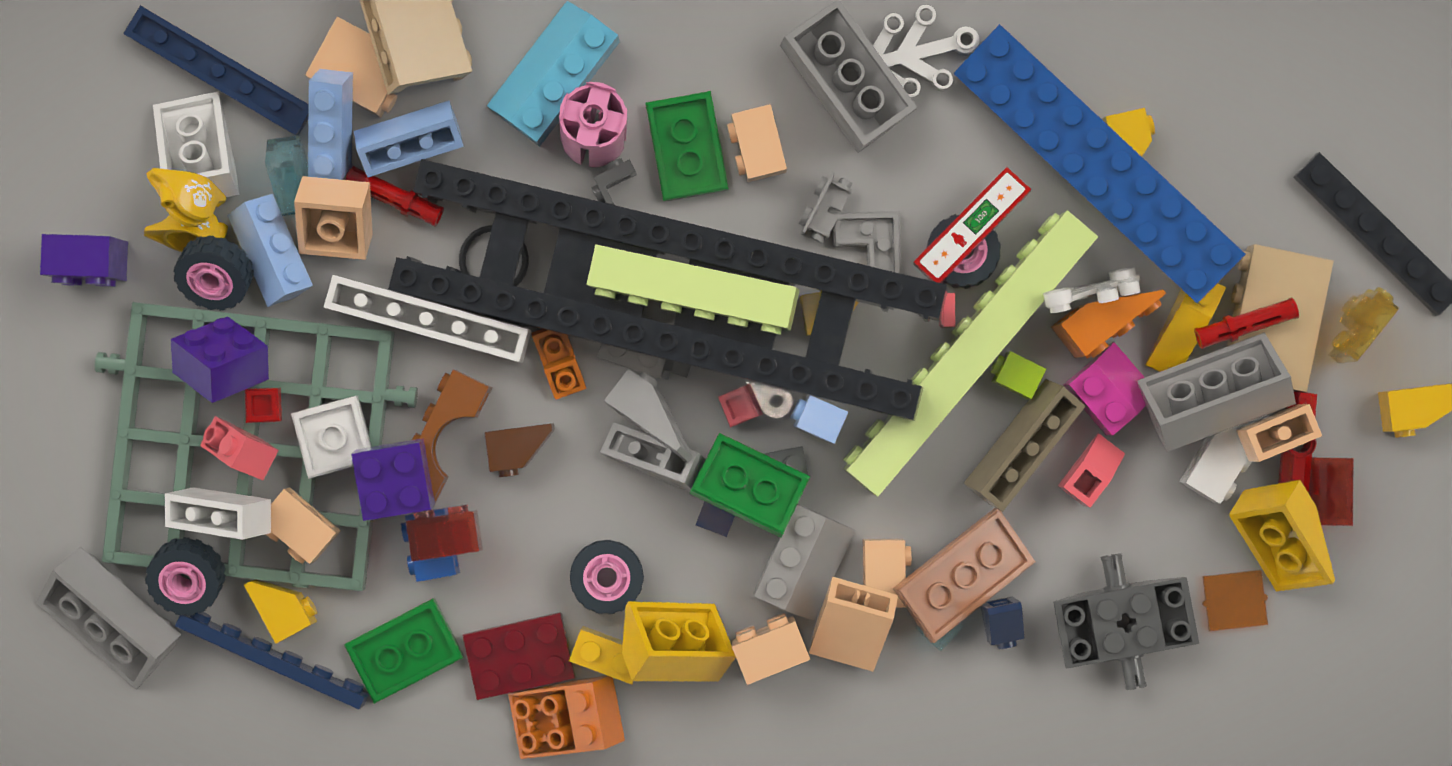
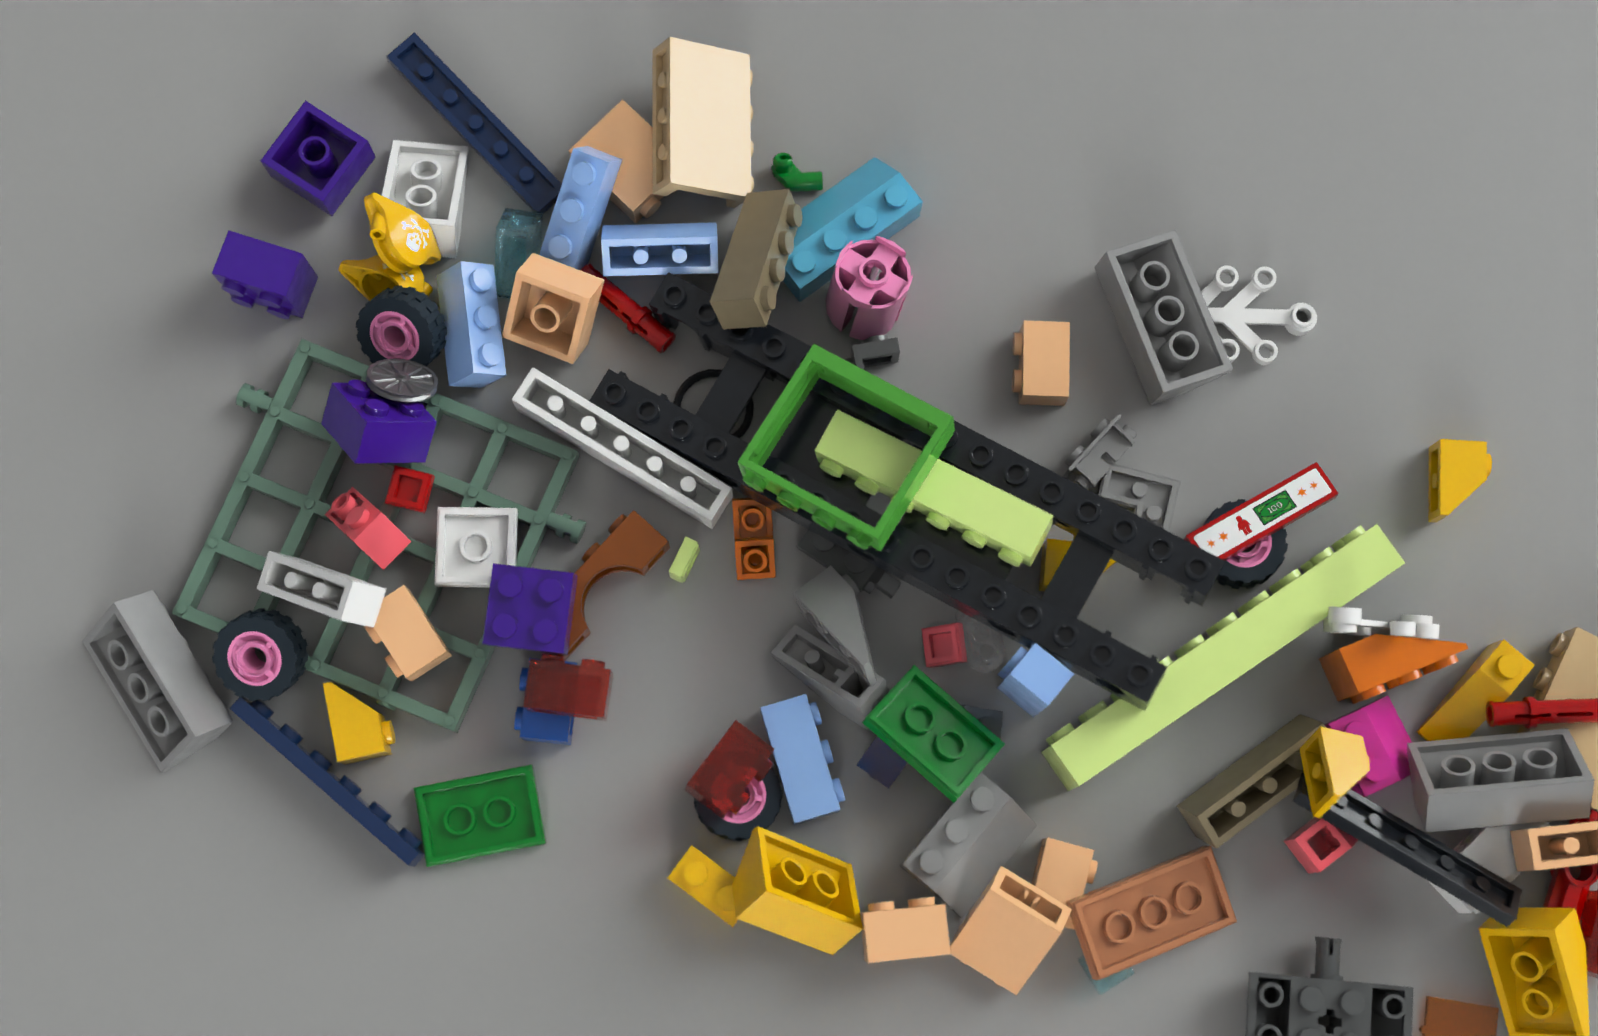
camera: 15 degrees right, 10 degrees down
(95, 142) = (318, 158): none -> dark purple brick
(227, 318) = (402, 380): none -> flat silver wheel
(491, 129) = (756, 259): none -> dark tan brick
(501, 39) = (792, 177): none -> green arm
(507, 396) = (684, 560): none -> yellowish green tile
(515, 447) = (677, 618): reddish brown slope -> none
(518, 656) = (609, 859): dark red plate -> none
(551, 261) = (871, 390): none -> bright green window
(567, 717) = (643, 947): orange slope -> none
(594, 561) = (730, 769): none -> clear red brick
(650, 532) = (802, 758): none -> light blue brick
(687, 146) = (962, 346): green tile -> none
(948, 314) = (1205, 614): coral tile -> none
(1003, 622) = (1183, 981): dark blue slope -> none
(1017, 374) = (1269, 699): lime brick -> none
(1078, 422) = (1332, 766): none -> yellow slope
(1099, 164) = (1423, 491): blue plate -> none
(1155, 467) = (1421, 854): none -> black plate

